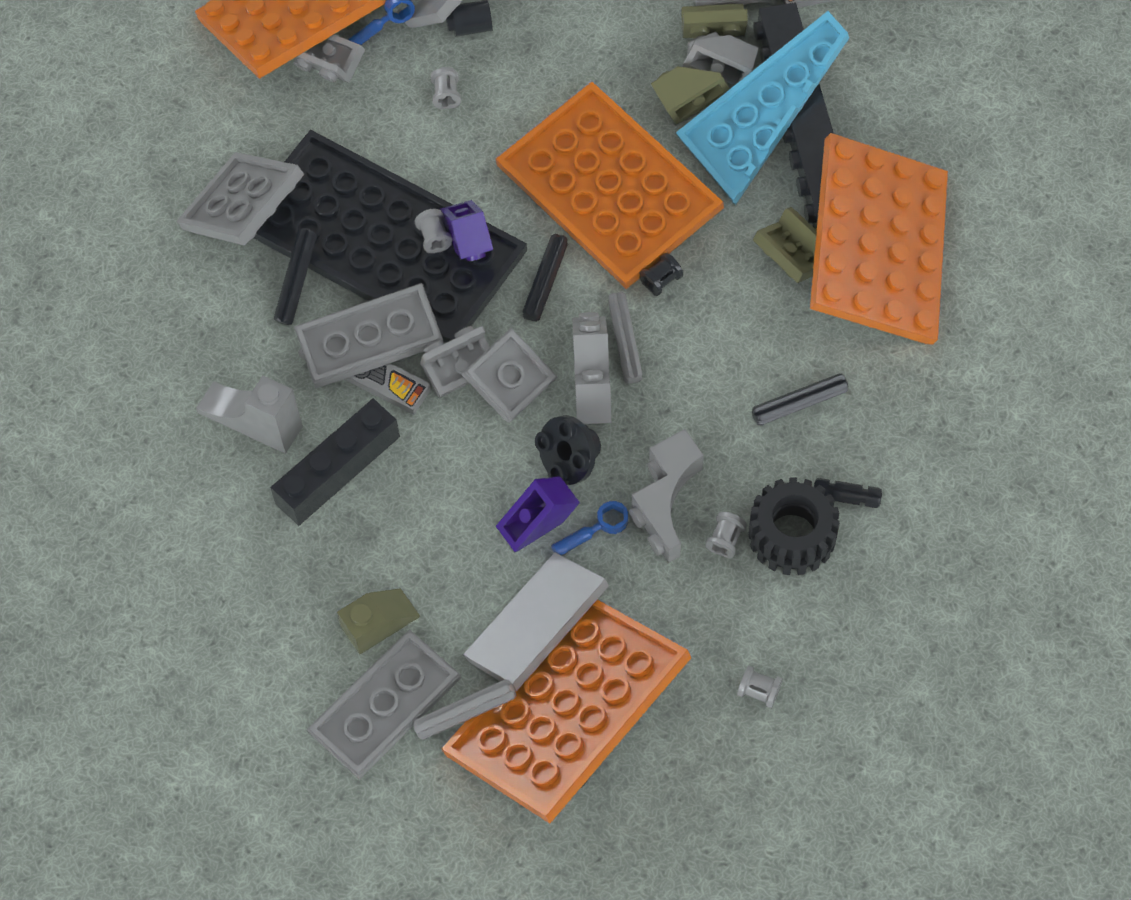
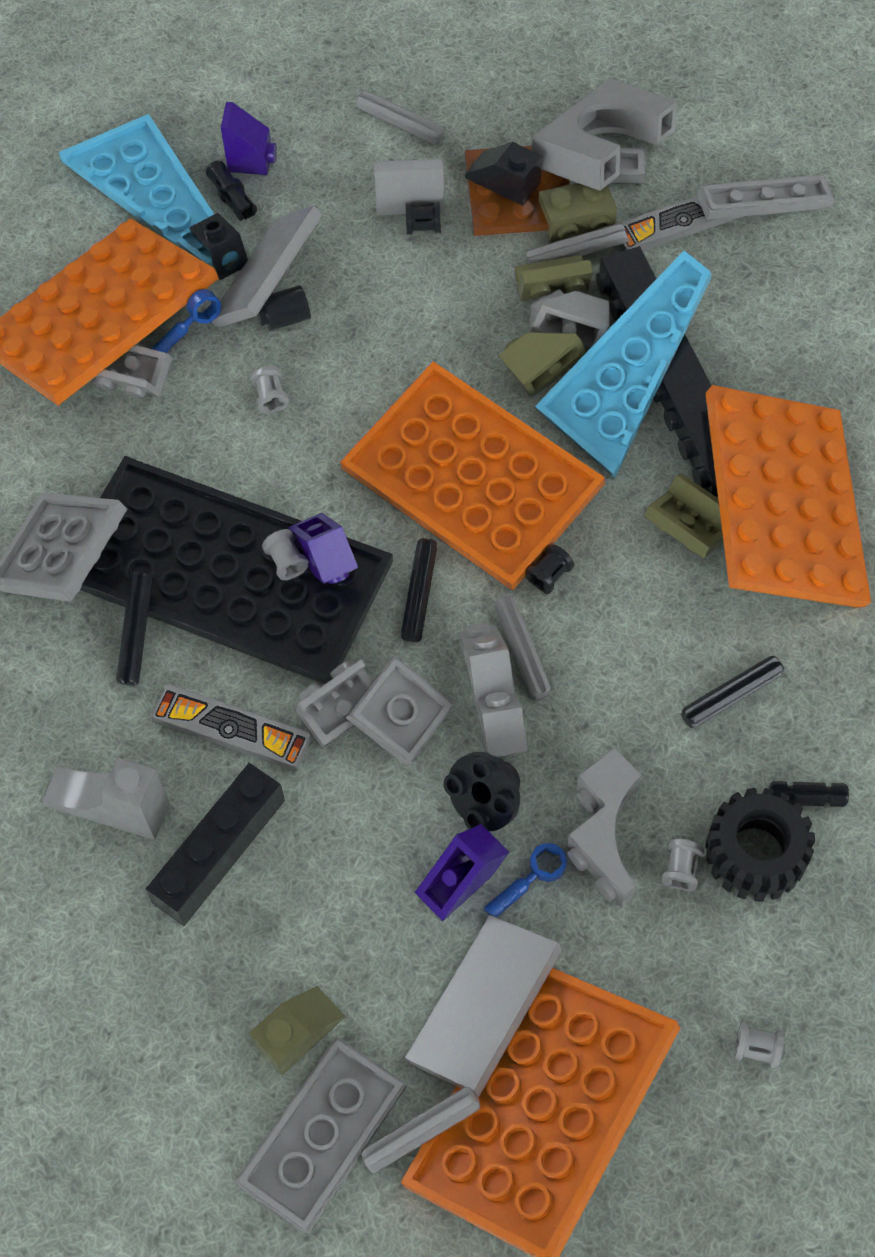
camera: 10 degrees left, 0 degrees up
(368, 335) = (230, 687): light grey tile -> none

